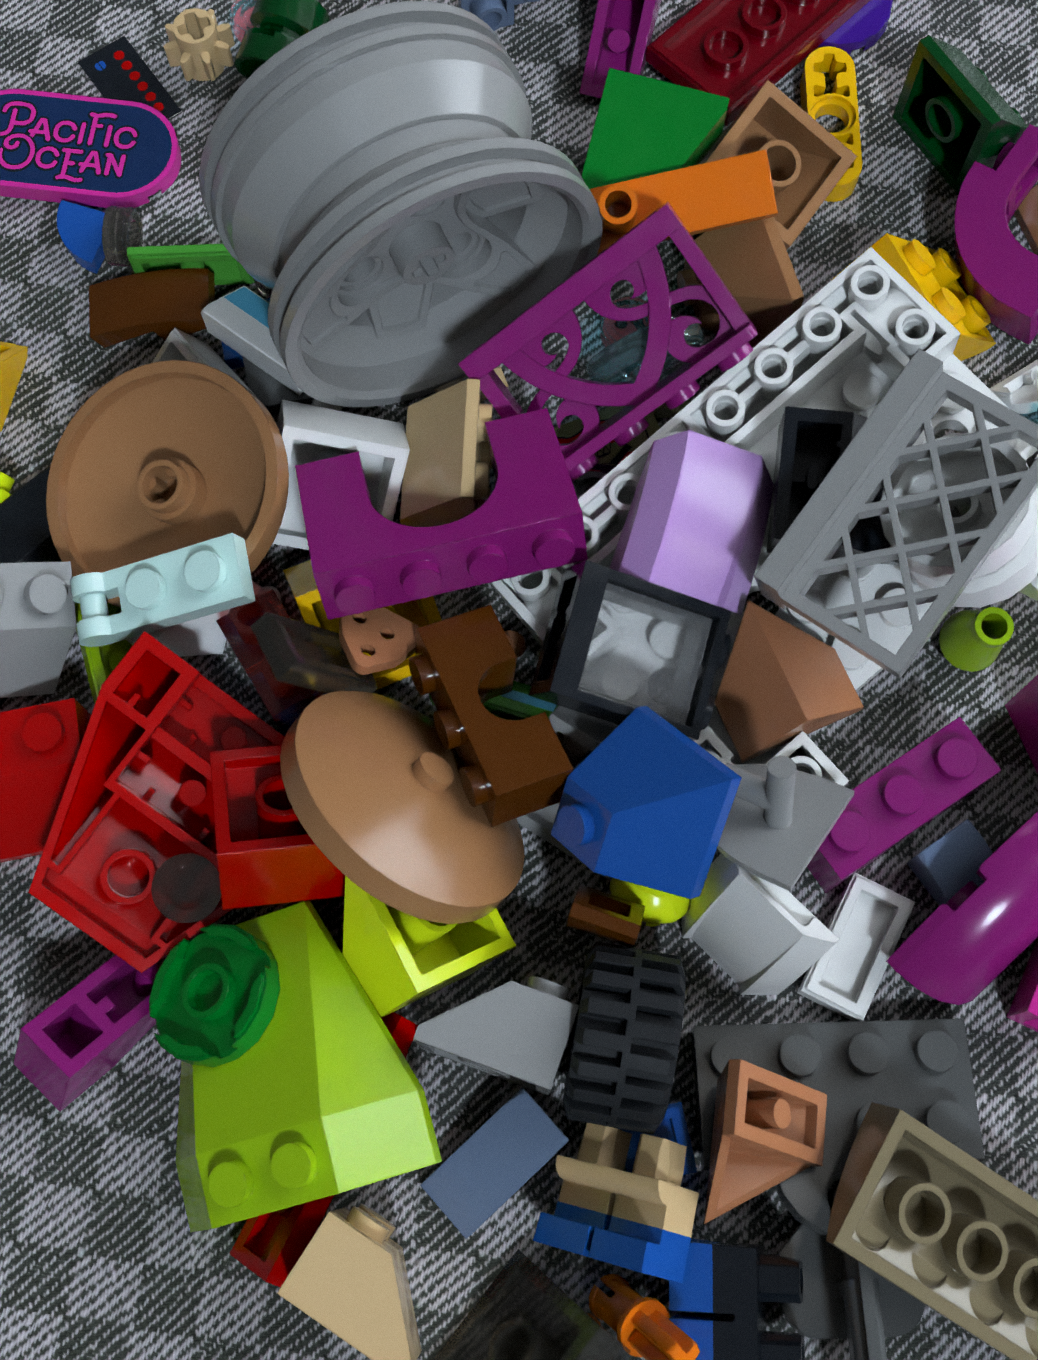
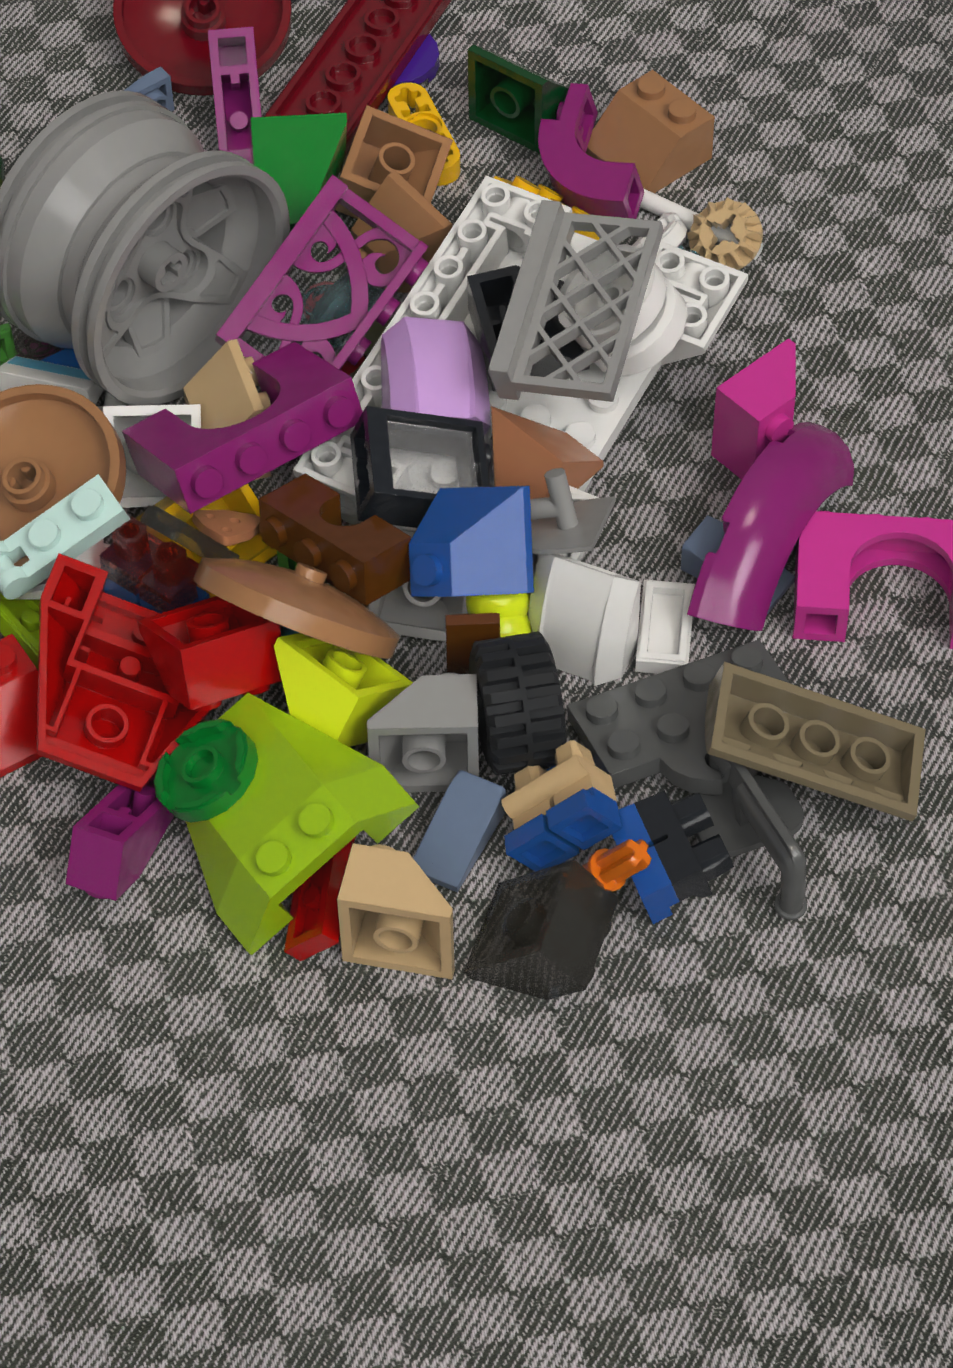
camera: 20 degrees left, 20 degrees down
(186, 887) = (155, 716): clear smoke tile -> none
(702, 196) = (367, 172): orange piece -> none
(760, 1134) = (637, 725): nougat slope -> none
(902, 800) = (665, 505): magenta arch -> none
(975, 637) = (669, 410): lime cone -> none

